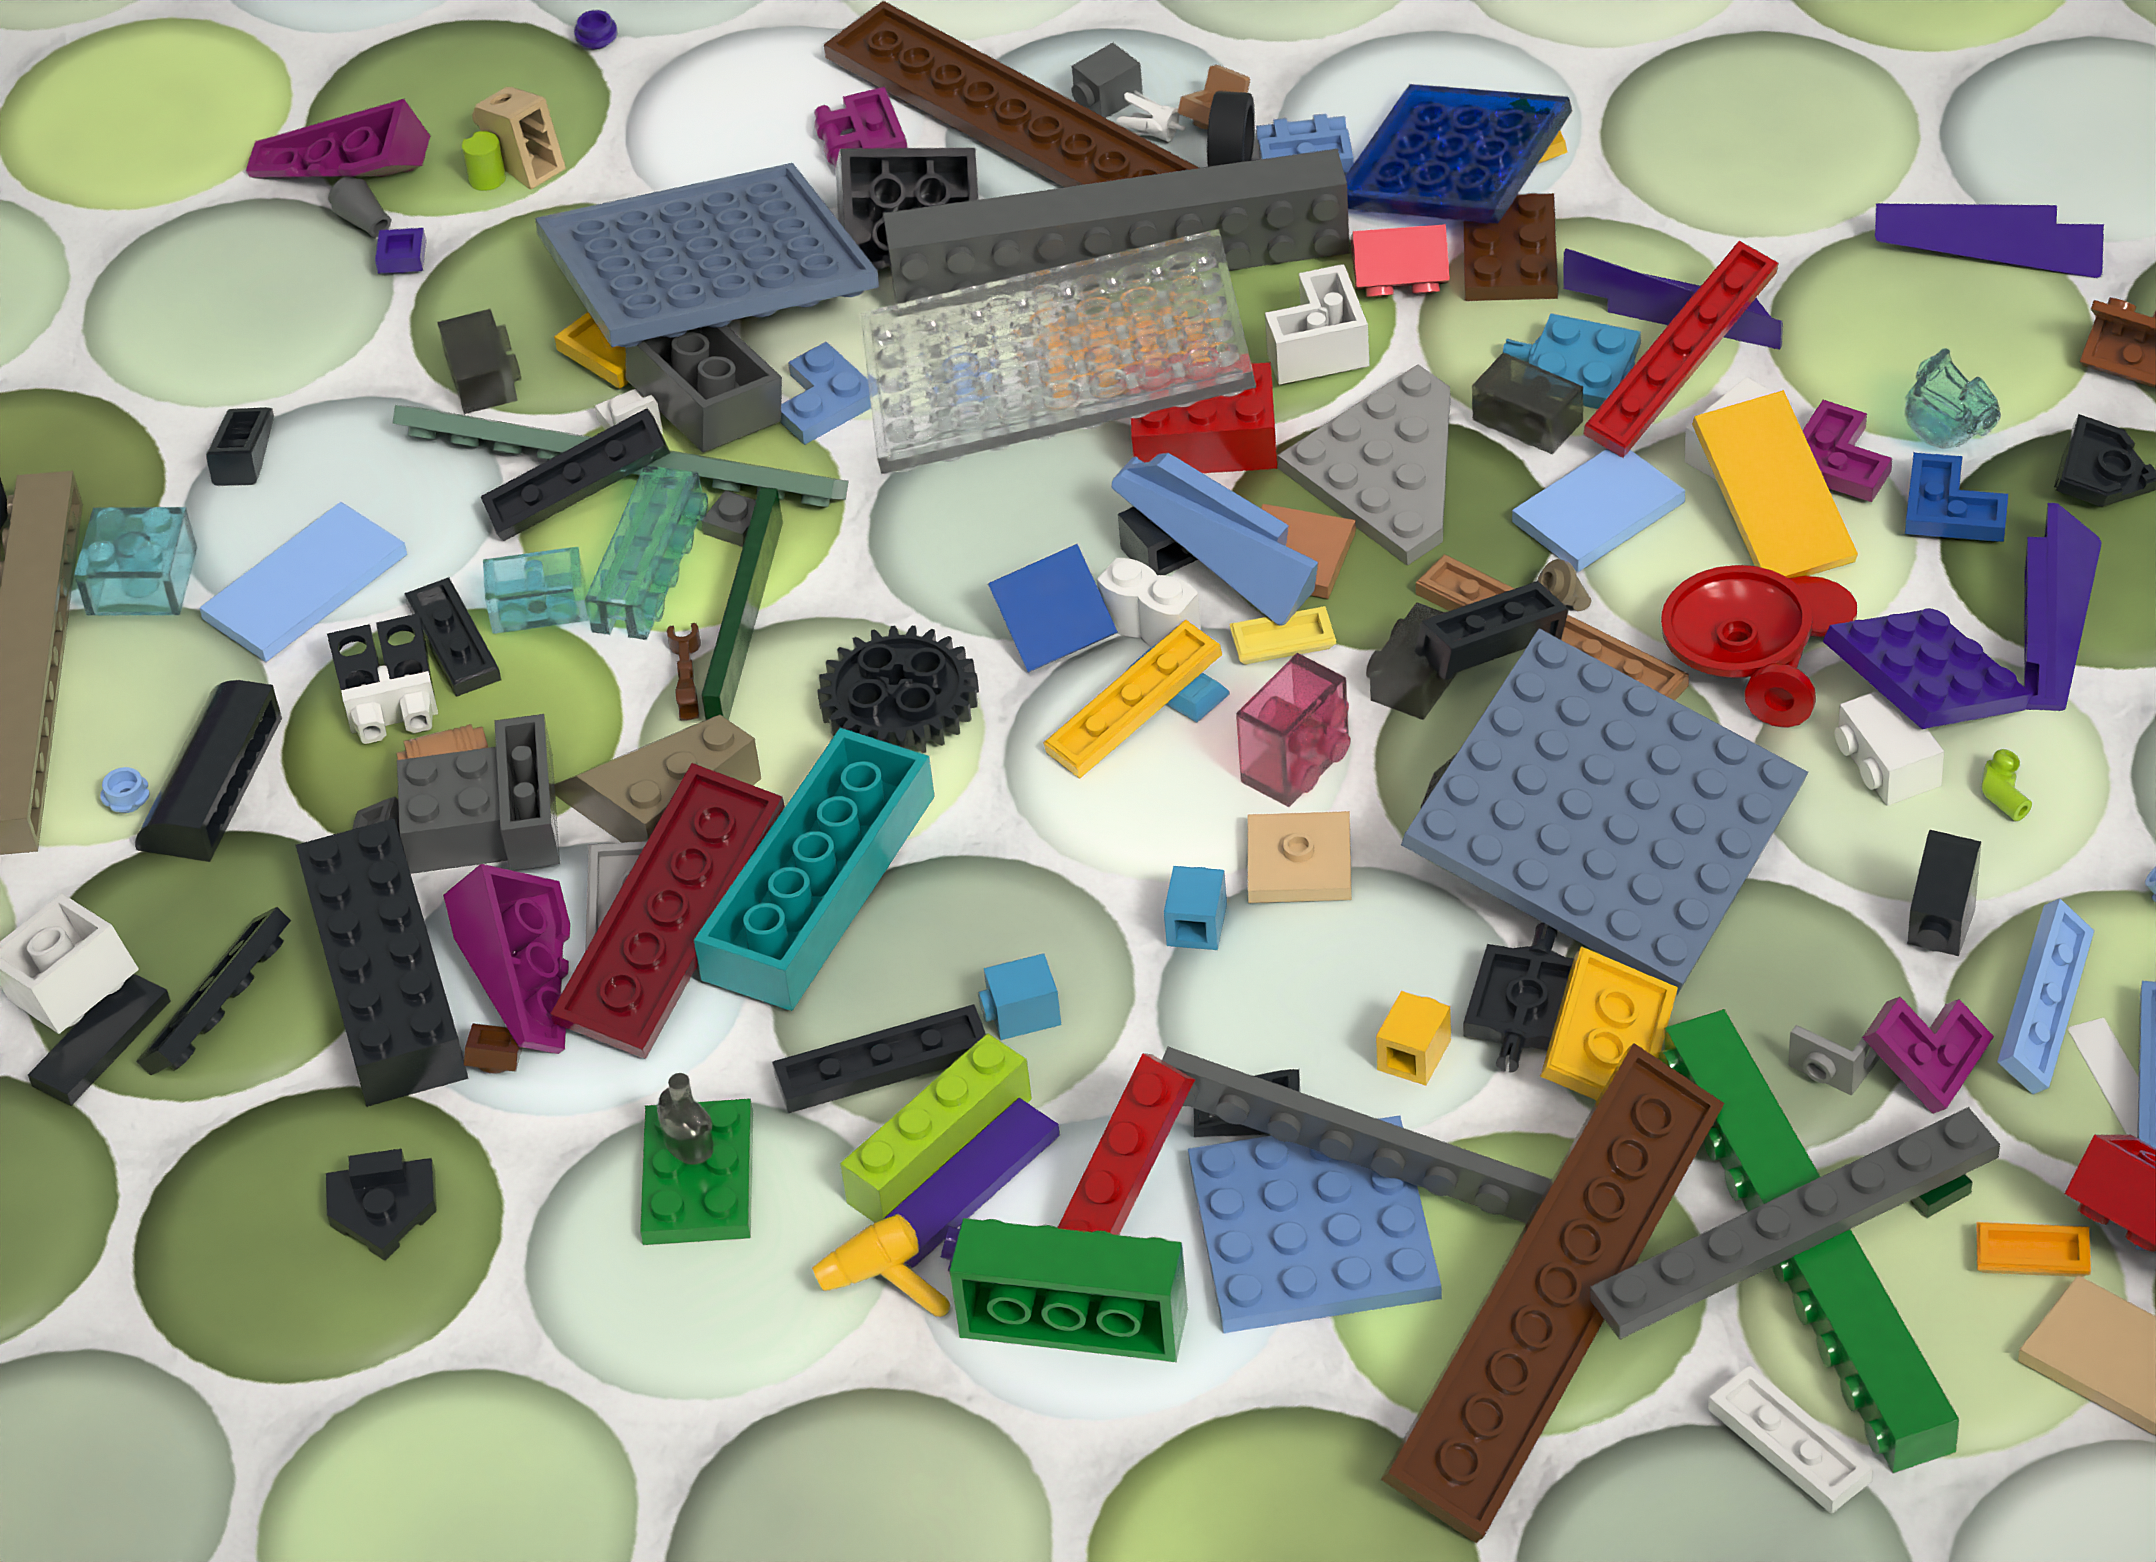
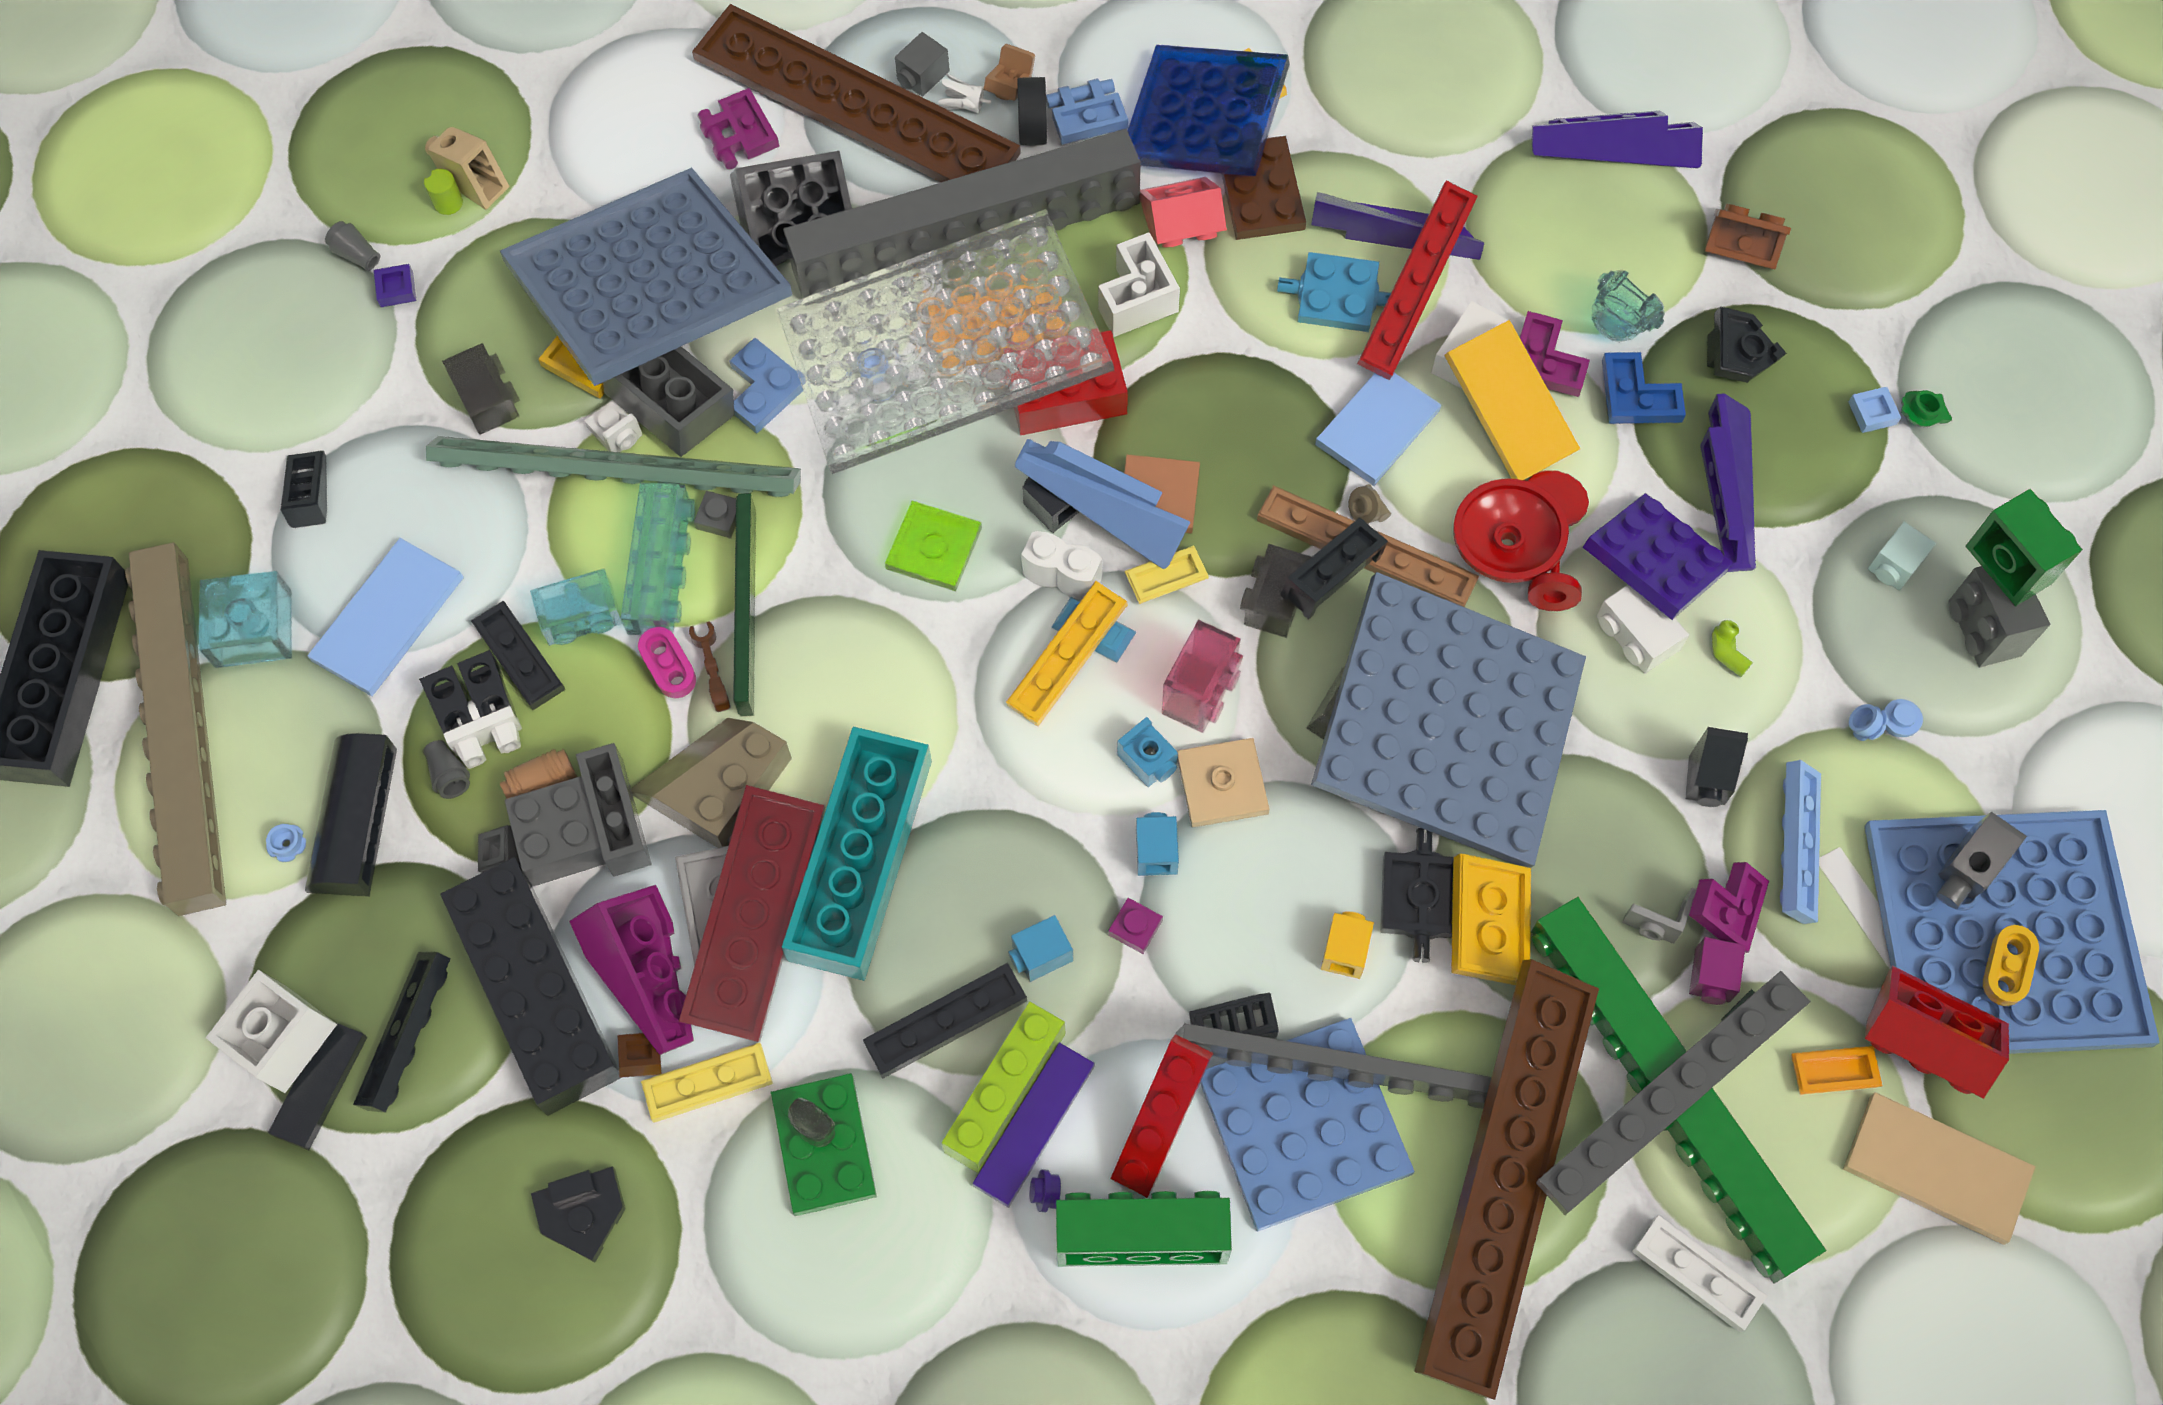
camera: 15 degrees left, 20 degrees up
(335, 741) = (446, 772): none -> dark grey cone
(355, 145) = (327, 192): magenta wedge -> none
(569, 1092) = (706, 1082): none -> light yellow tile
(575, 474) = (586, 497): black plate -> none
(595, 29) = (505, 51): dark purple plate -> none
(631, 658) = (667, 665): none -> dark pink plate
(881, 1251) = (987, 1210): yellow piece -> none
(899, 688) = (882, 700): black gear -> none
(976, 563) = (933, 545): none -> clear neon green tile
(1052, 608) = (989, 579): blue piece -> none
(1148, 993) = (1135, 925): none -> magenta plate
(1207, 810) = (1147, 767): none -> dark azure brick
(1383, 463) = (1209, 403): light grey plate -> none
(1527, 403) = (1307, 338): clear smoke brick -> none
(1894, 1111) = (1717, 971): none -> magenta brick

